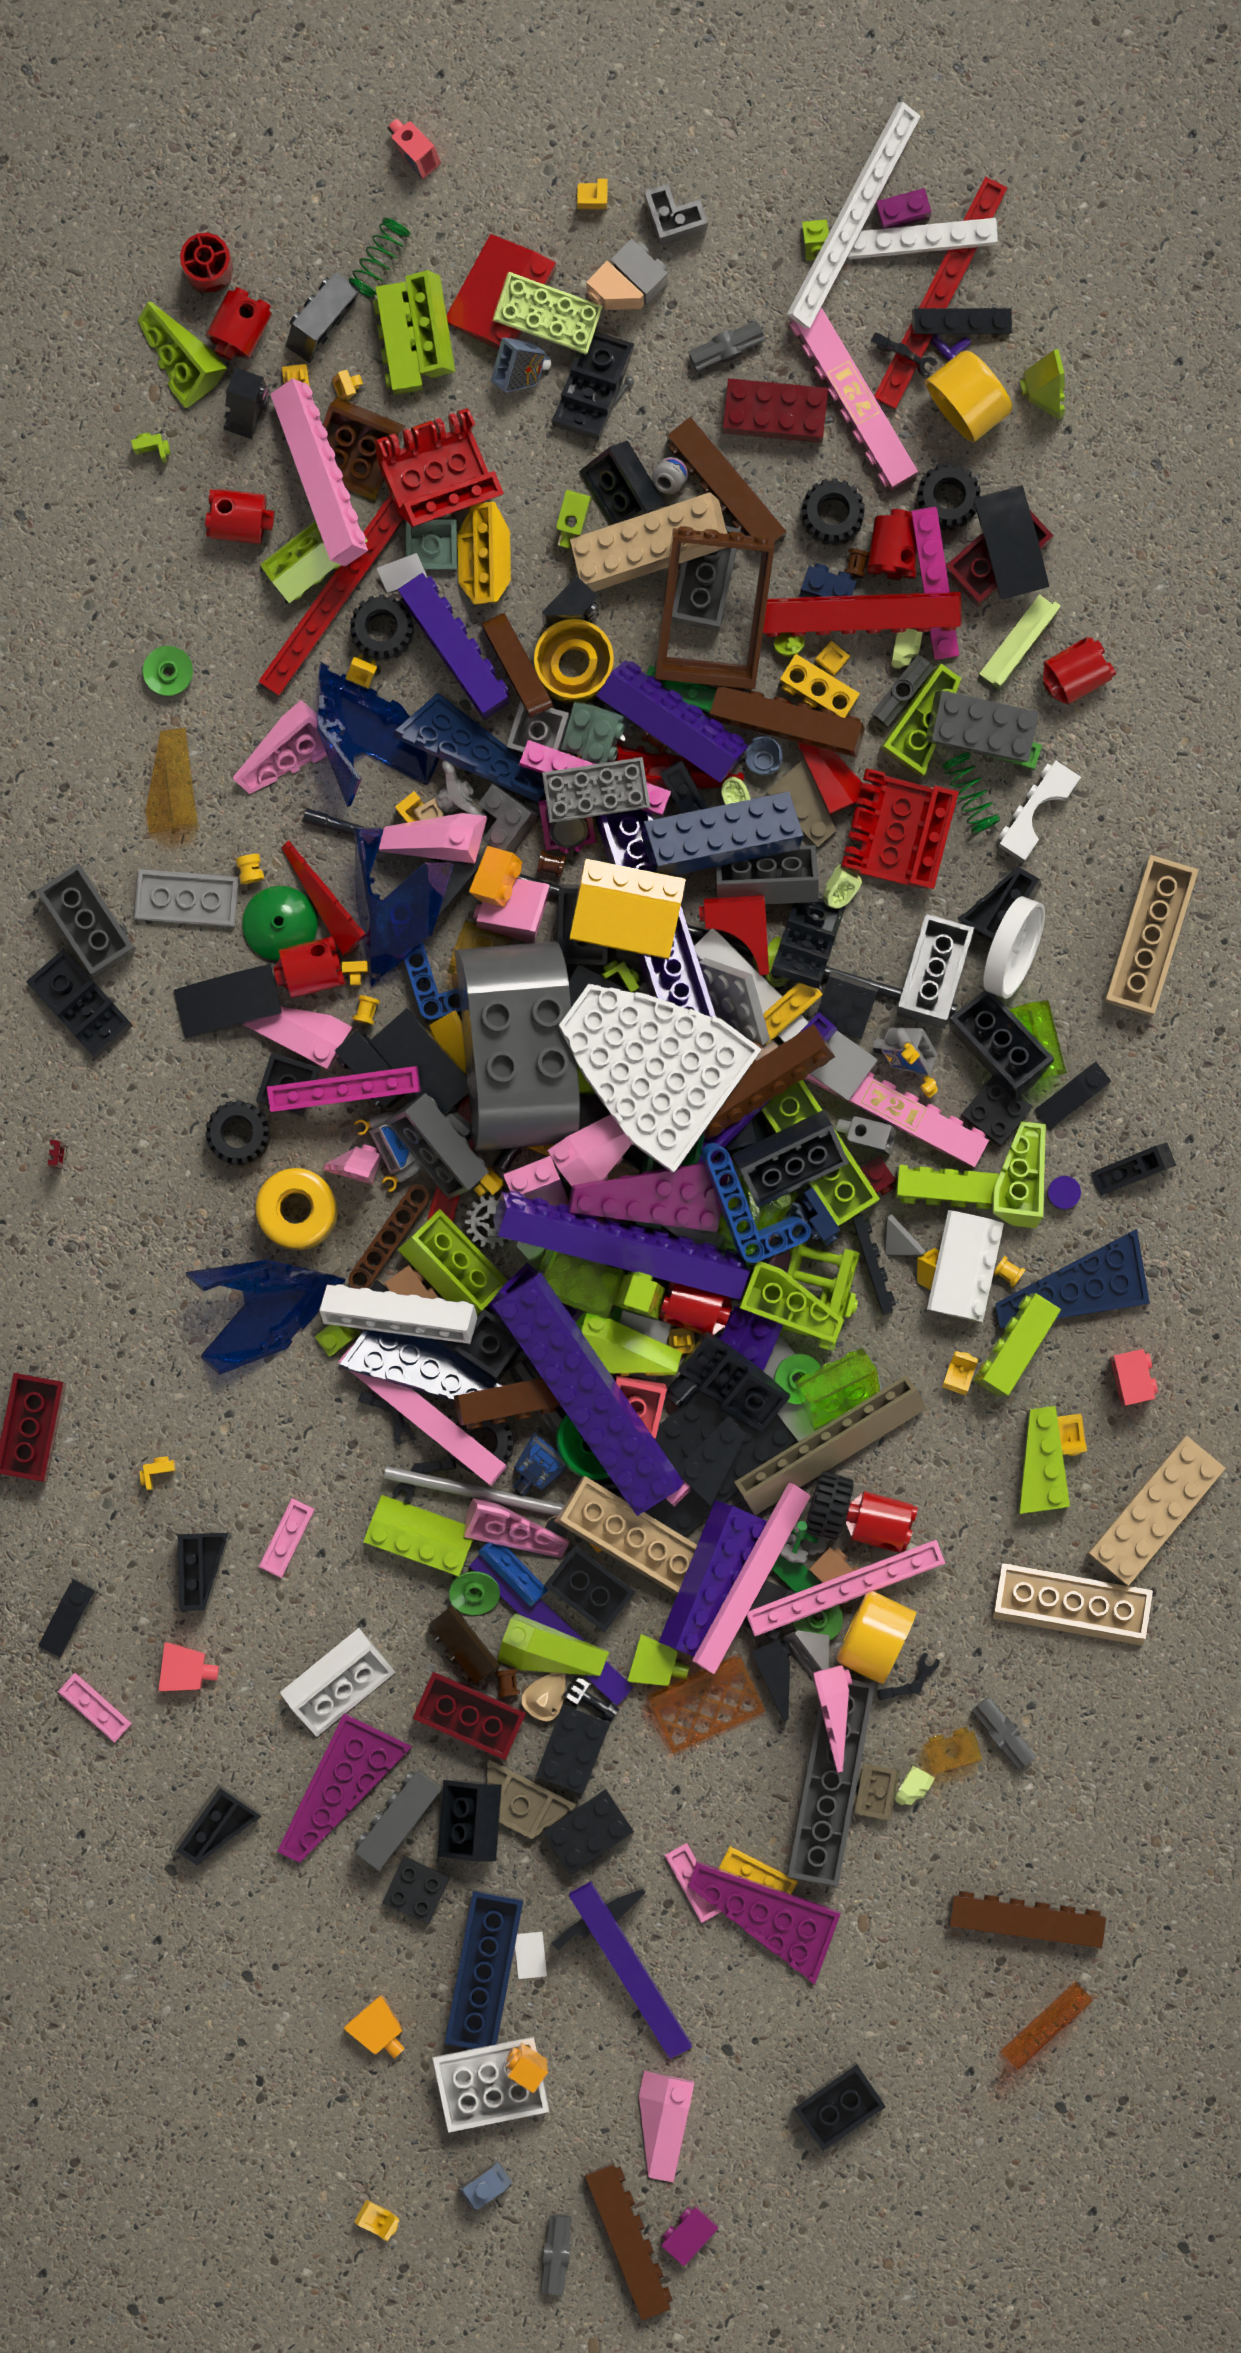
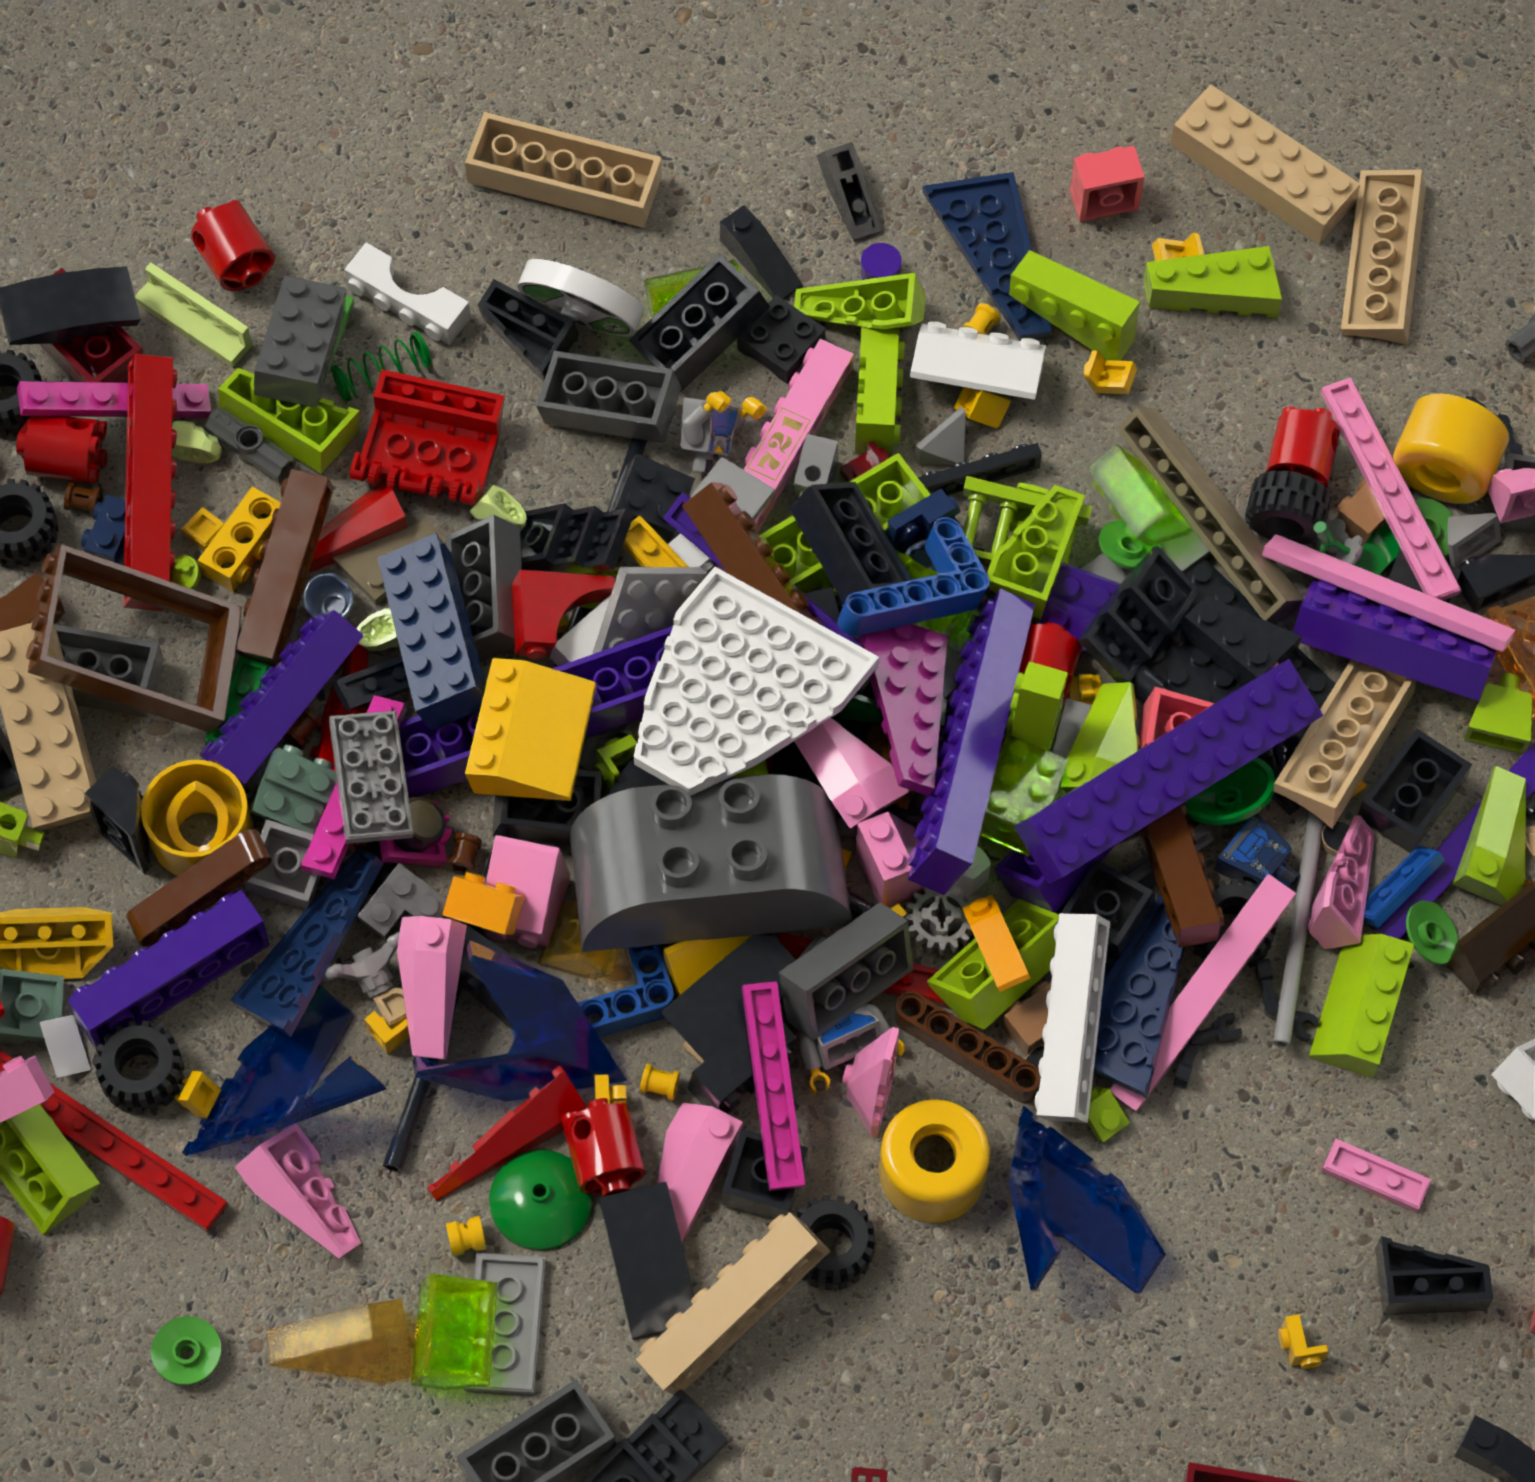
camera: 95 degrees left, 20 degrees down
(174, 861) = (454, 1332): none -> clear neon green slope
(184, 1057) = (732, 1303): none -> tan brick
(457, 1259) = (996, 942): none -> light orange slope

